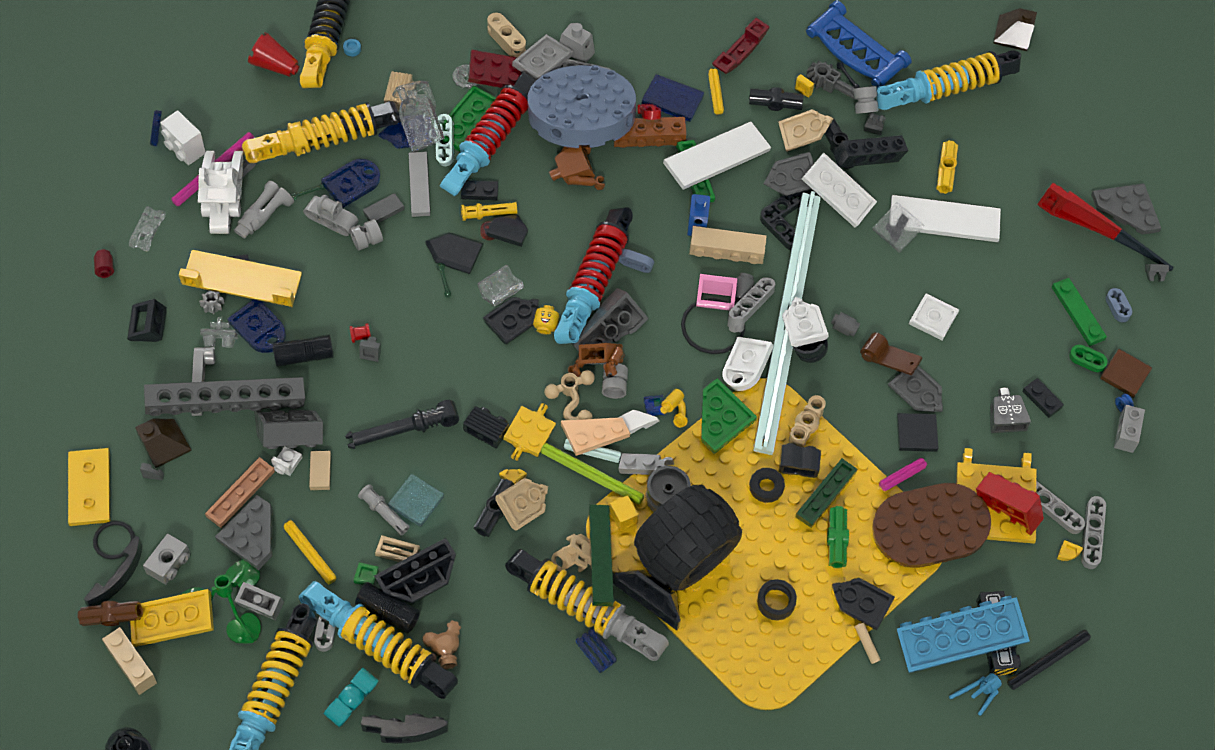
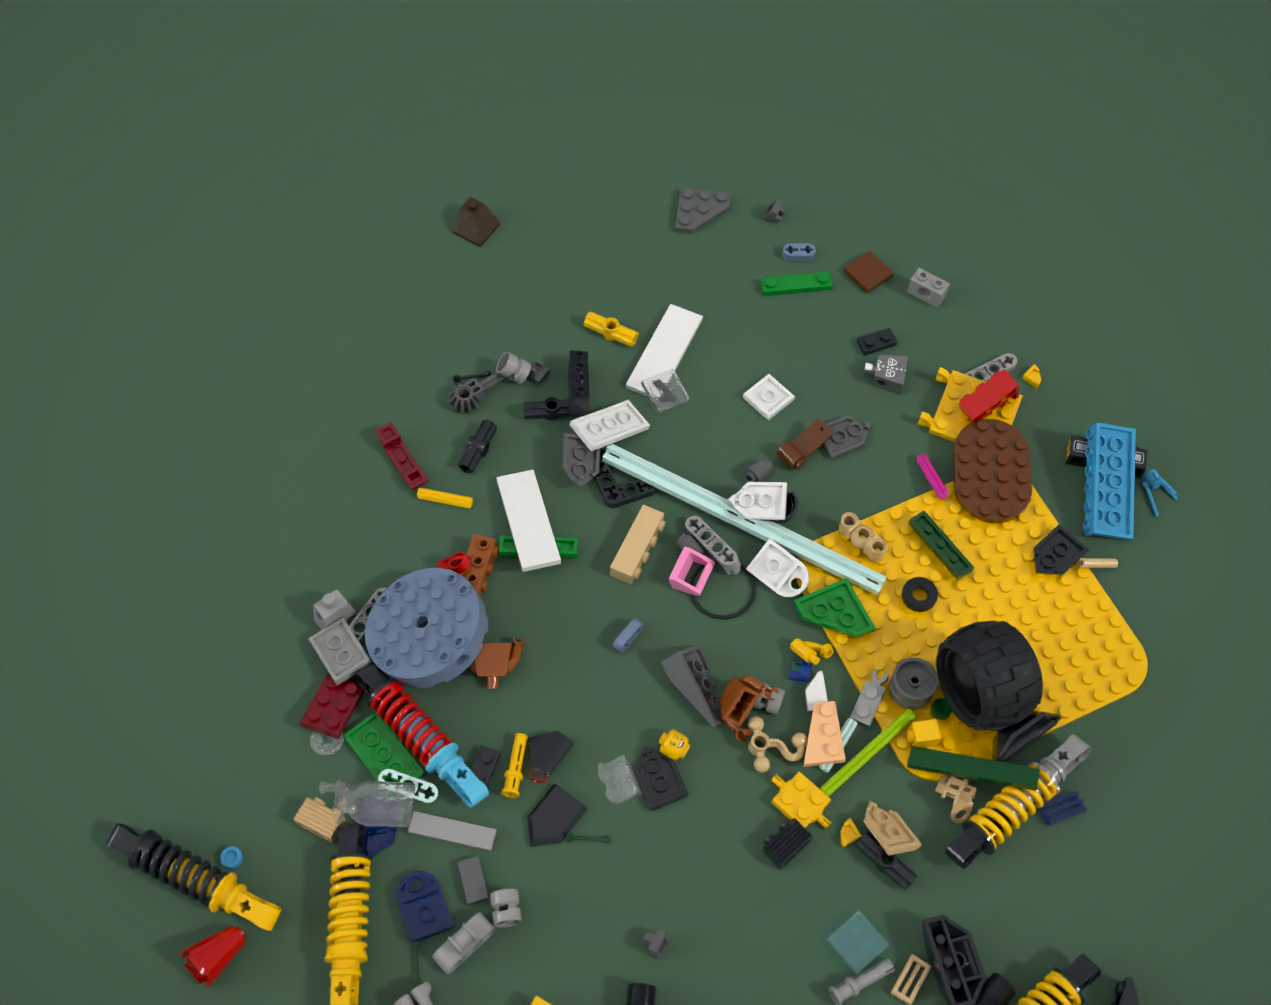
camera: 70 degrees left, 0 degrees up
(359, 333) = (632, 949): red bush -> none
(445, 414) = (764, 912): black piece -> none
(445, 644) = (1034, 957): medium nougat animal -> none
(506, 35) = (306, 676): tan piece -> none
(594, 274) = (636, 680): piece -> none
(673, 97) = (436, 540): clear blue tile -> none
(698, 210) = (595, 558): blue torso -> none
(780, 585) = (1050, 611): black tyre -> none
(799, 460) = (902, 556): black brick -> none
(803, 129) = (525, 432): tan tile -> none
(804, 86) = (472, 416): yellow tile -> none
(834, 19) = (473, 335): blue piece -> none
(838, 537) = (990, 550): green piece -> none
(917, 432) = (888, 451): black tile -> none
(950, 79) = (516, 290): piece -> none
(1048, 659) = (1132, 422): black axle -> none
(1074, 209) = (695, 245): red plate -> none
(1088, 358) = (845, 293): green plate -> none
(1090, 531) = (1020, 349): light grey beam -> none
(1122, 401) = (900, 282): blue bush -> none

